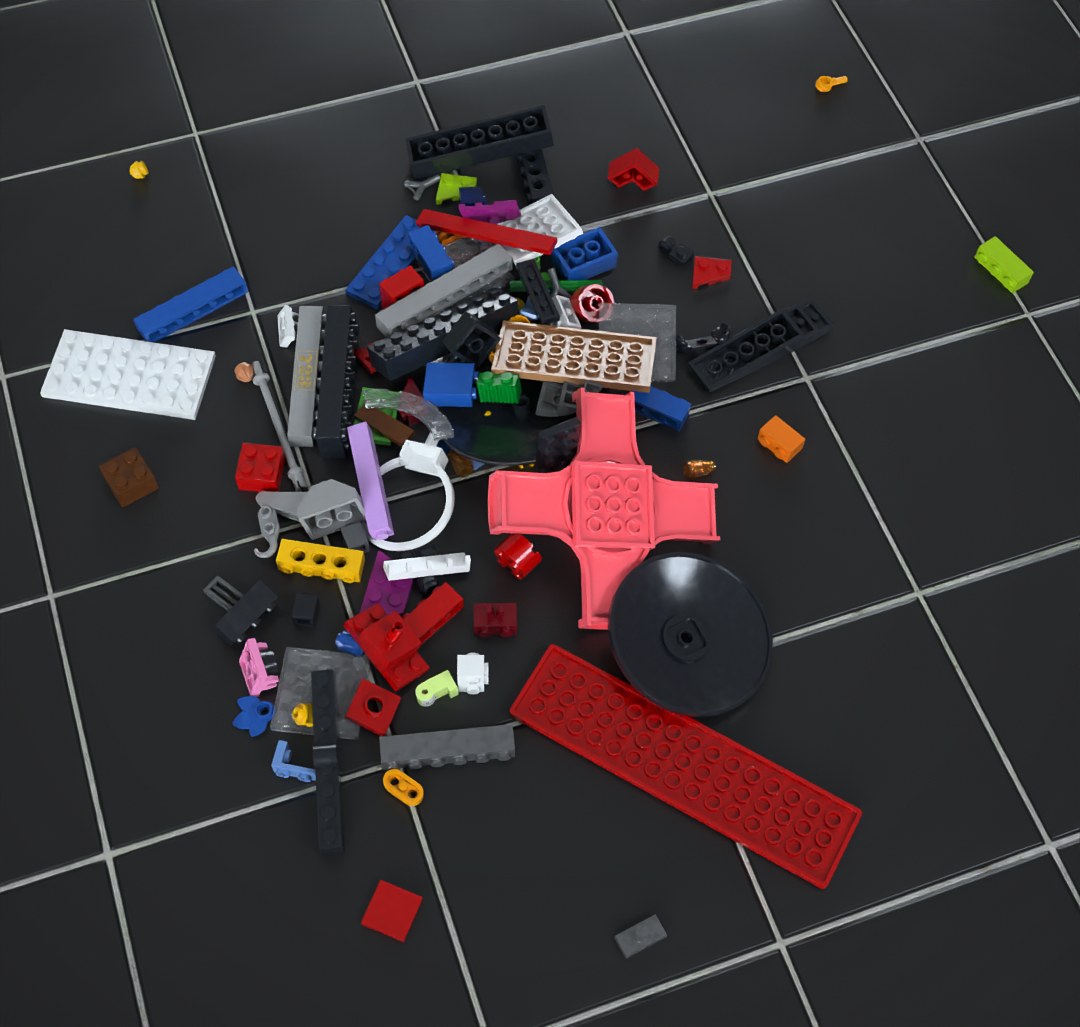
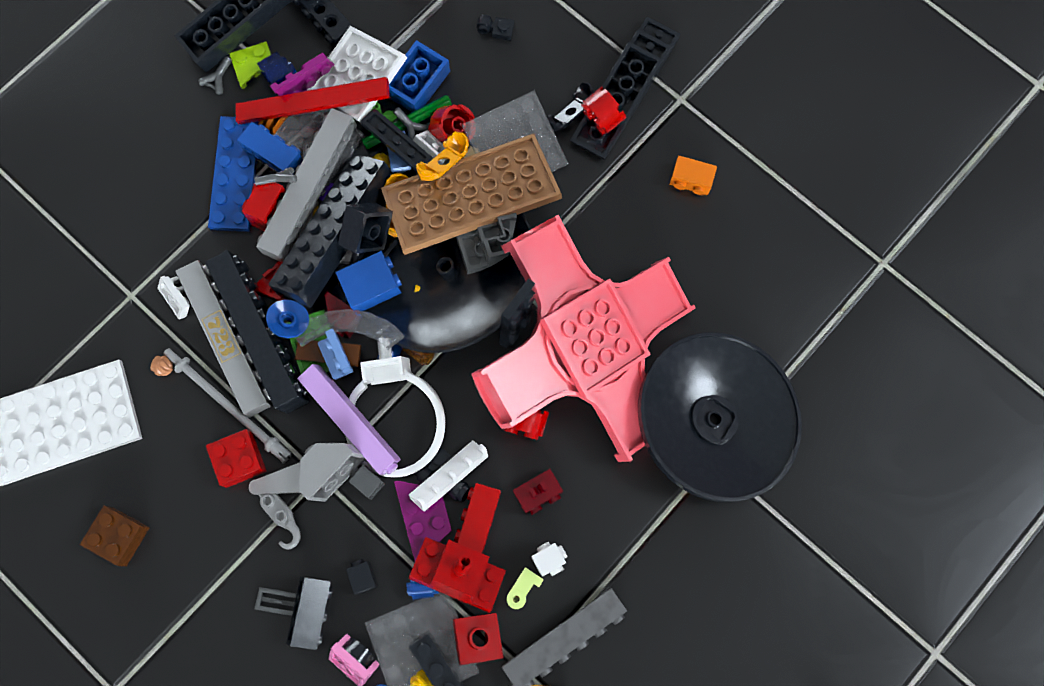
camera: 25 degrees left, 15 degrees up
(190, 305) = (66, 323): blue brick -> none
(312, 553) = (313, 527): yellow brick -> none
(367, 379) = (290, 311): none -> blue dish
(388, 425) = (335, 355): none -> medium blue bracket
(429, 273) = (282, 176): none -> dark grey piece
(499, 387) = (418, 263): green brick -> none
(580, 320) = (455, 149): none -> light orange piece
(662, 407) = (575, 199): blue brick -> none
(688, 766) = (774, 538): red plate -> none
(698, 468) = (635, 243): clear orange cone -> none
(710, 271) = (538, 32): red wing -> none
(727, 348) = (603, 109): none -> red brick

